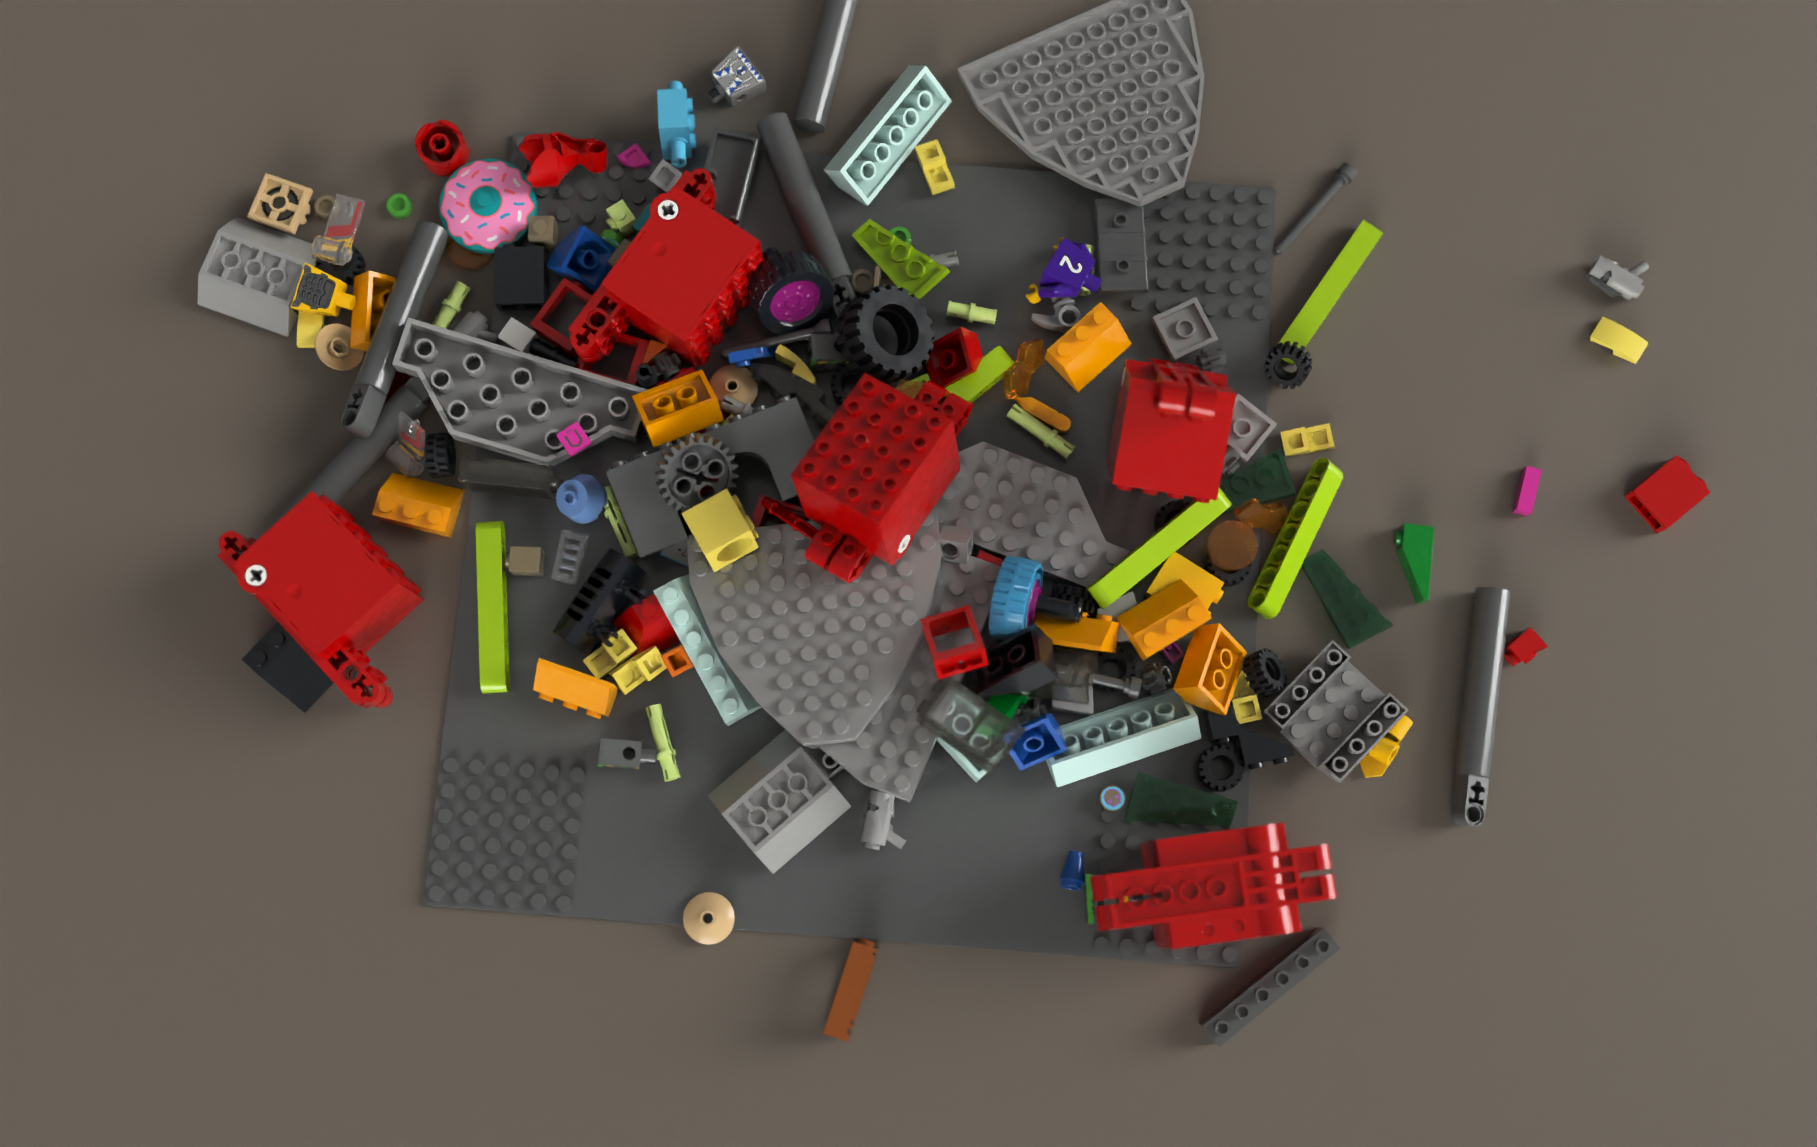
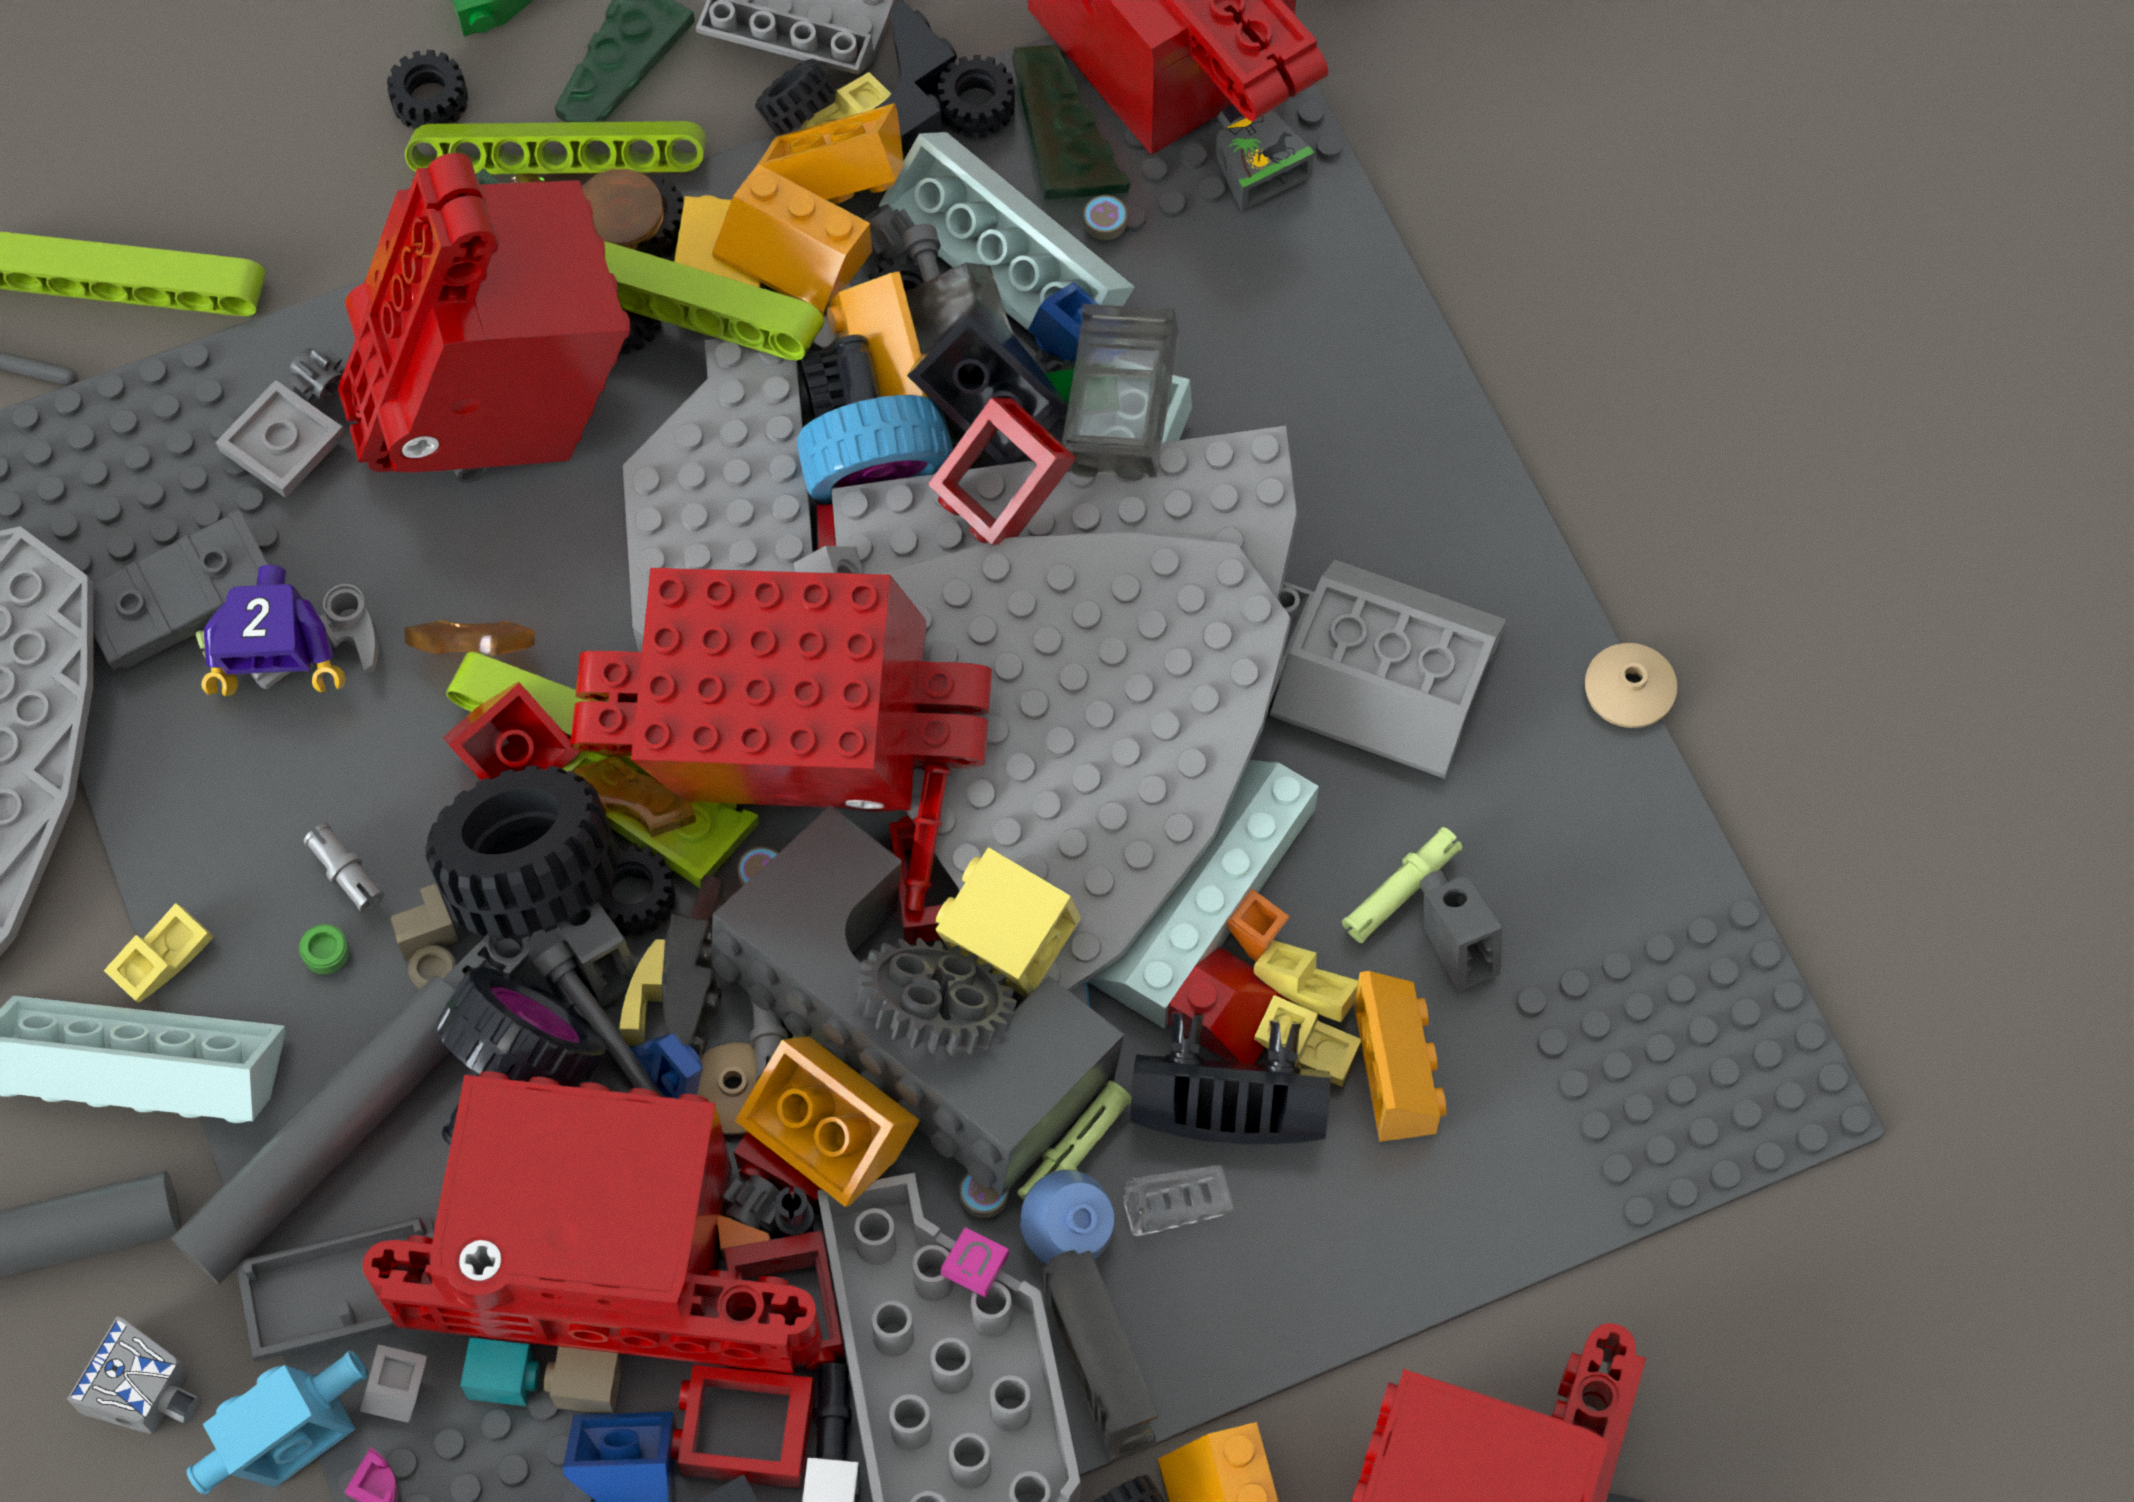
camera: 115 degrees left, 15 degrees down
(492, 607) = (1335, 1276): lime beam -> none
(525, 561) = (1228, 1261): dark tan brick -> none
(611, 237) = (556, 1430): bright green tile -> none
(620, 219) = (514, 1431): yellowish green brick -> none
(851, 989) = (1607, 425): dark orange door -> none
(876, 821) = (1340, 509): light grey piece -> none
(899, 260) = (371, 906): lime wing -> none
(971, 312) = (407, 767): yellowish green pin -> none
(1042, 432) = (569, 552): yellowish green pin -> none
(1044, 413) = (531, 579): light orange piece -> none
(1073, 871) = (1247, 216): blue cone -> none
(1088, 347) = (392, 566): light orange slope -> none
(1297, 356) = (289, 259): black tyre -> none
(1307, 440) = (371, 194): light yellow slope -> none
(1377, 481) = (424, 70): none -> black tyre

